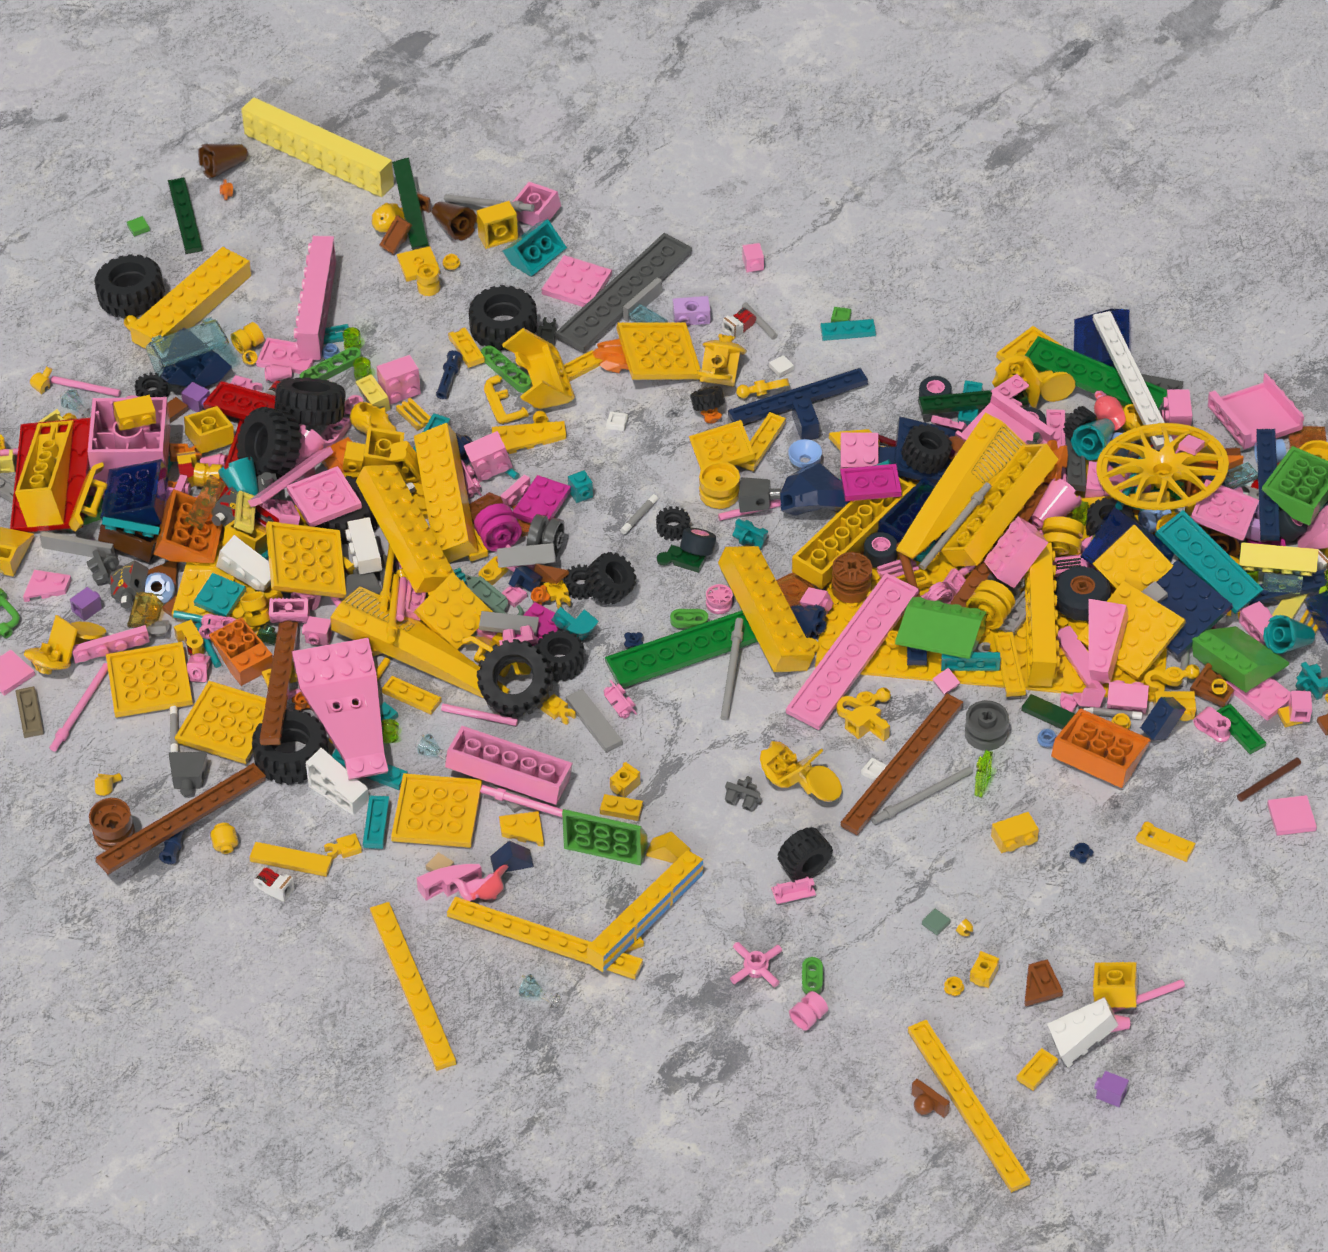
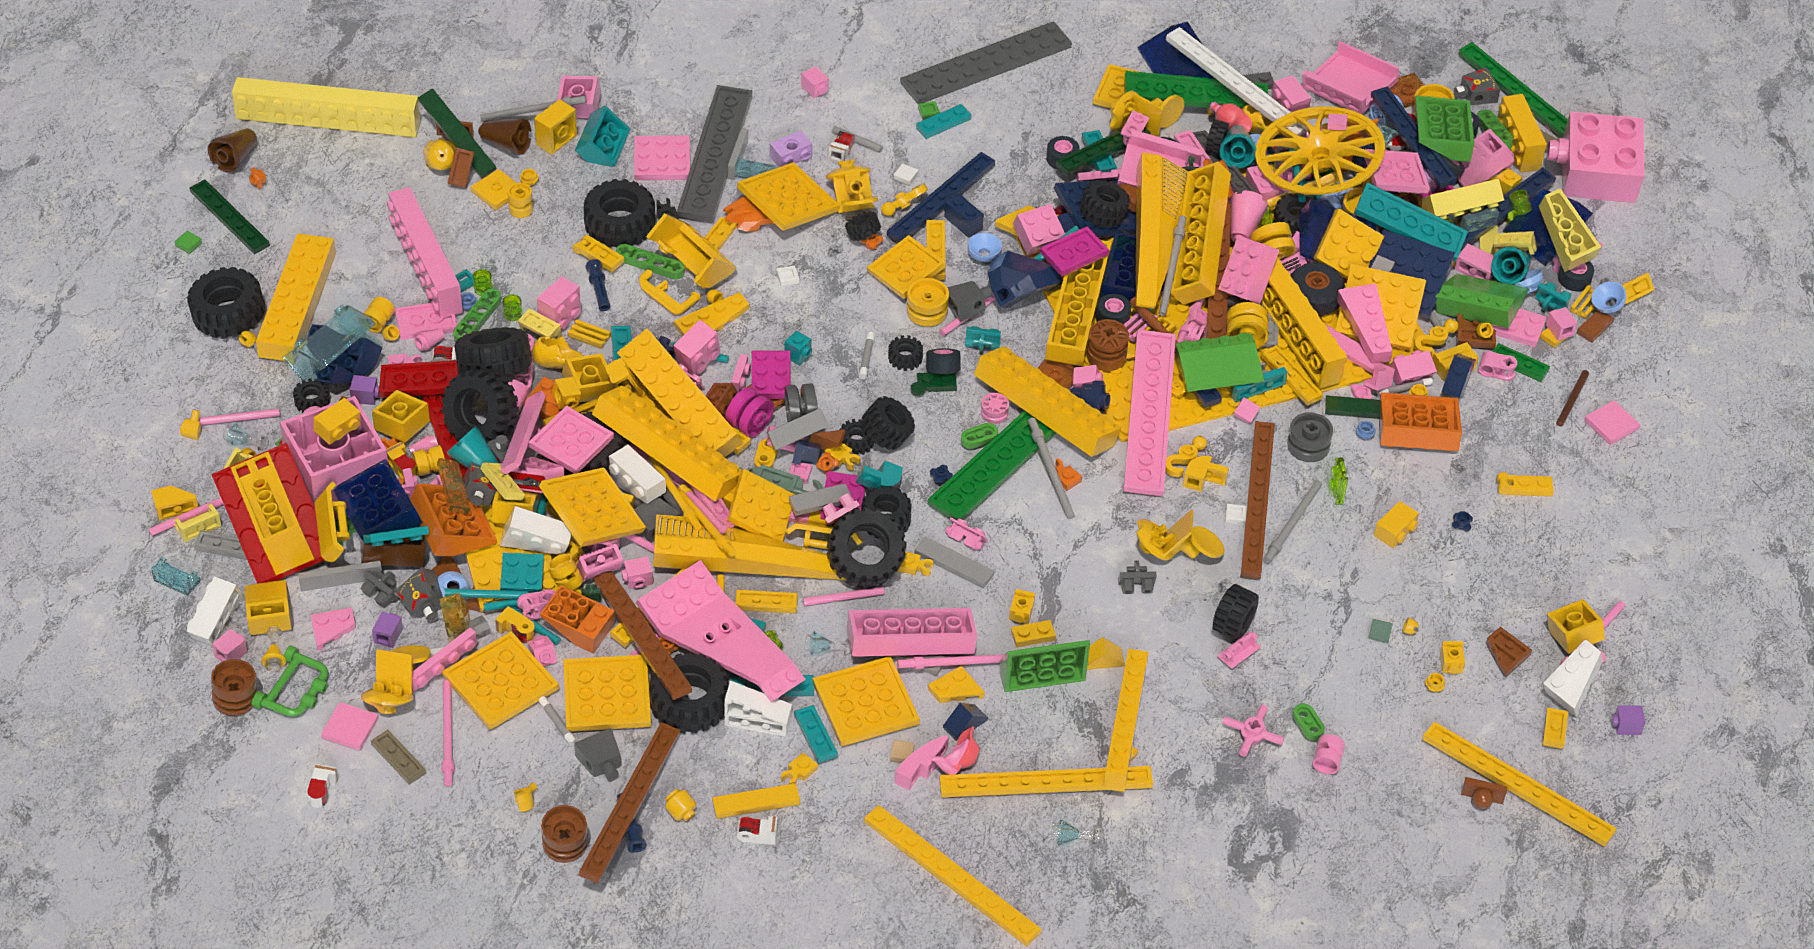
camera: 30 degrees left, 0 degrees up
(178, 602) = (476, 593): none -> teal bar
(744, 681) = (1067, 475): none -> orange plate
(923, 289) = (985, 62): none -> dark grey plate
(1297, 656) = (1531, 280): none -> light blue piece
(1305, 614) = (1520, 240): none -> light yellow hinge

